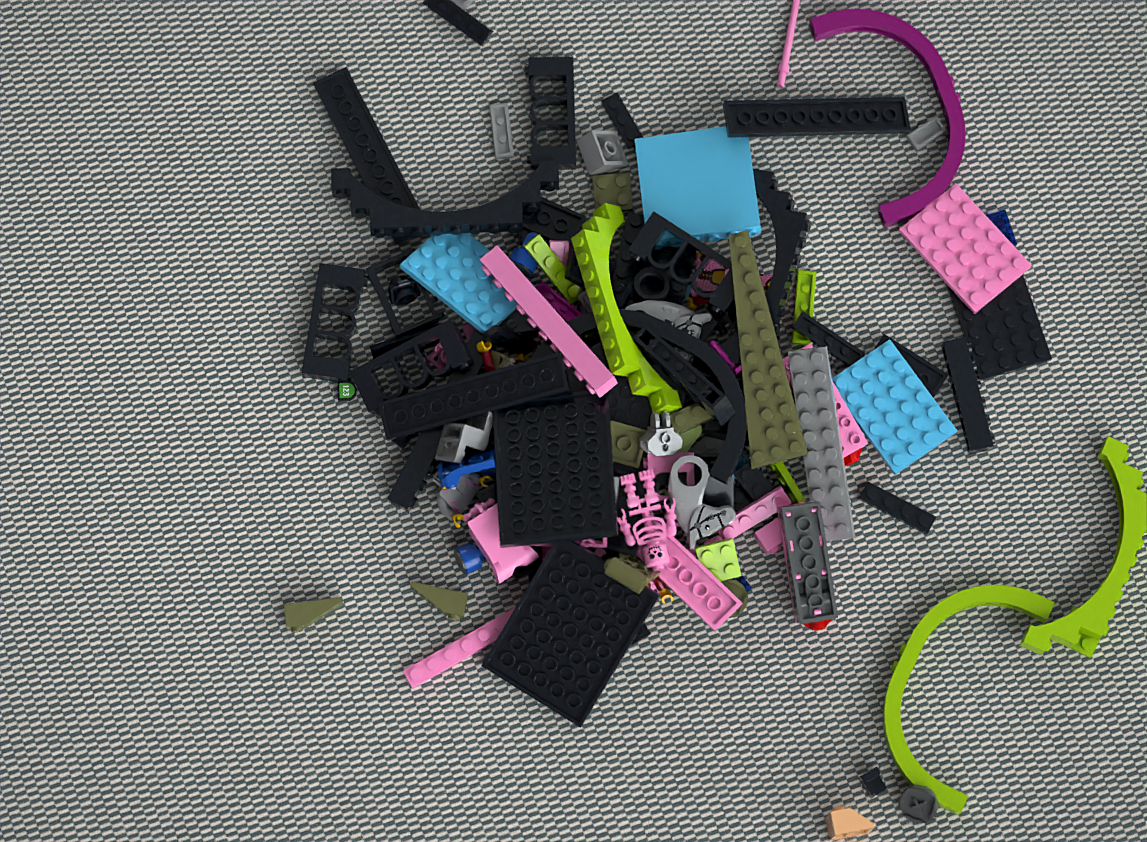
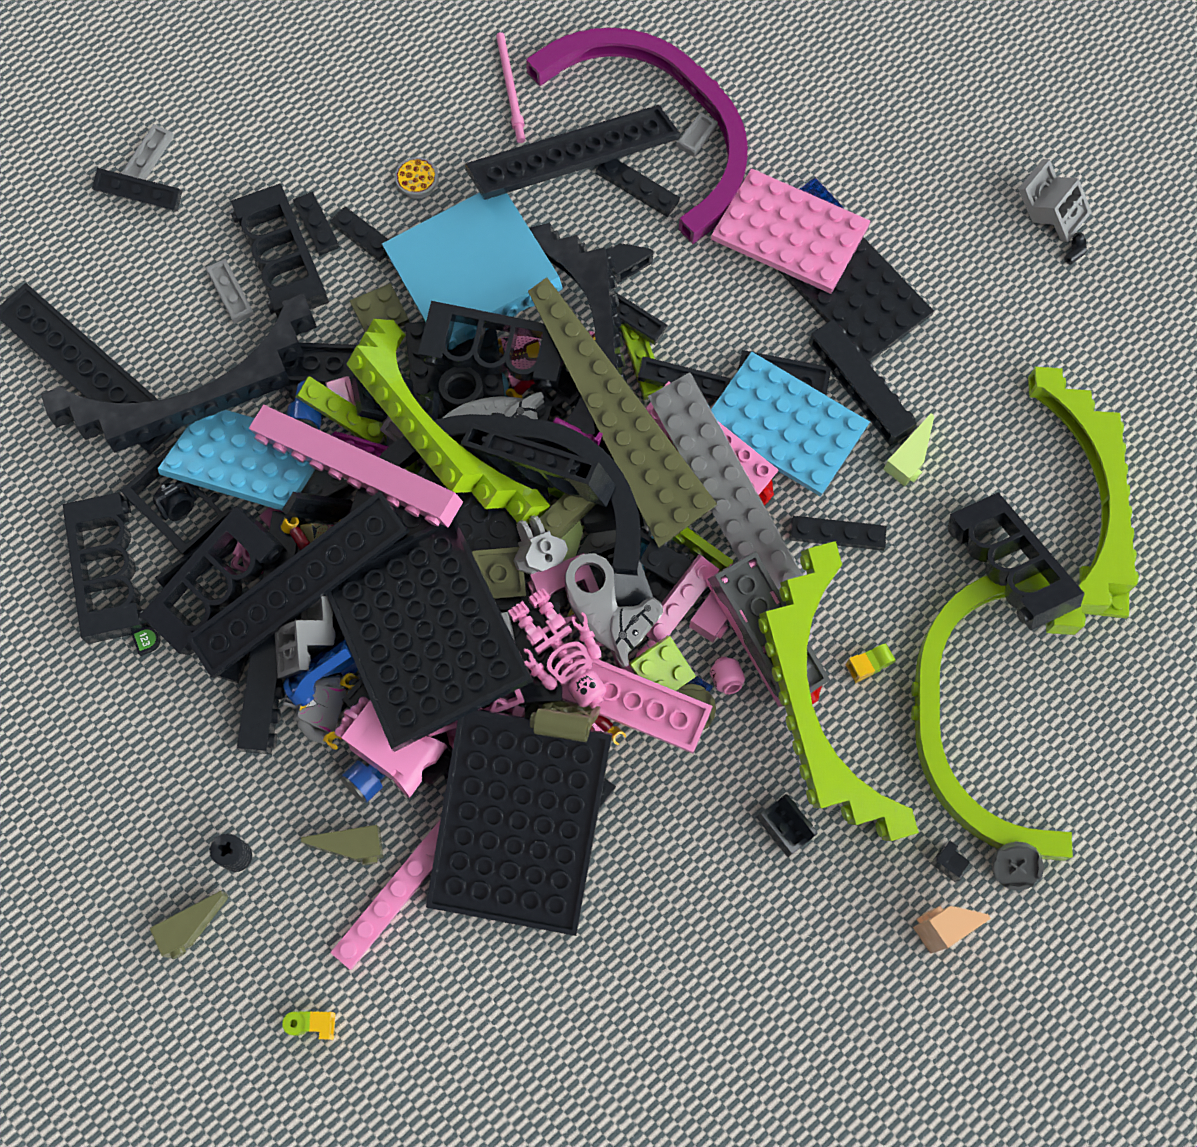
camera: 20 degrees left, 5 degrees down
(356, 580) = (222, 847): none -> black piece
(365, 710) = (301, 1022): none -> leg
(589, 98) = (316, 223): none -> black plate
(602, 152) = (350, 271): light grey slope -> none
(683, 88) = (416, 177): none -> tile
(763, 710) = (787, 825): none -> black bracket
(766, 584) = (727, 675): none -> bright pink head
(813, 278) = (640, 321): none -> black tile
(816, 574) = (825, 773): none -> lime arch
(824, 224) = (629, 260): none -> black slope
(860, 163) = (638, 186): none -> black plate
(877, 616) = (870, 662): none -> leg
(977, 470) = (909, 458): none -> yellowish green slope
(1018, 623) = (1032, 607): none -> black fence

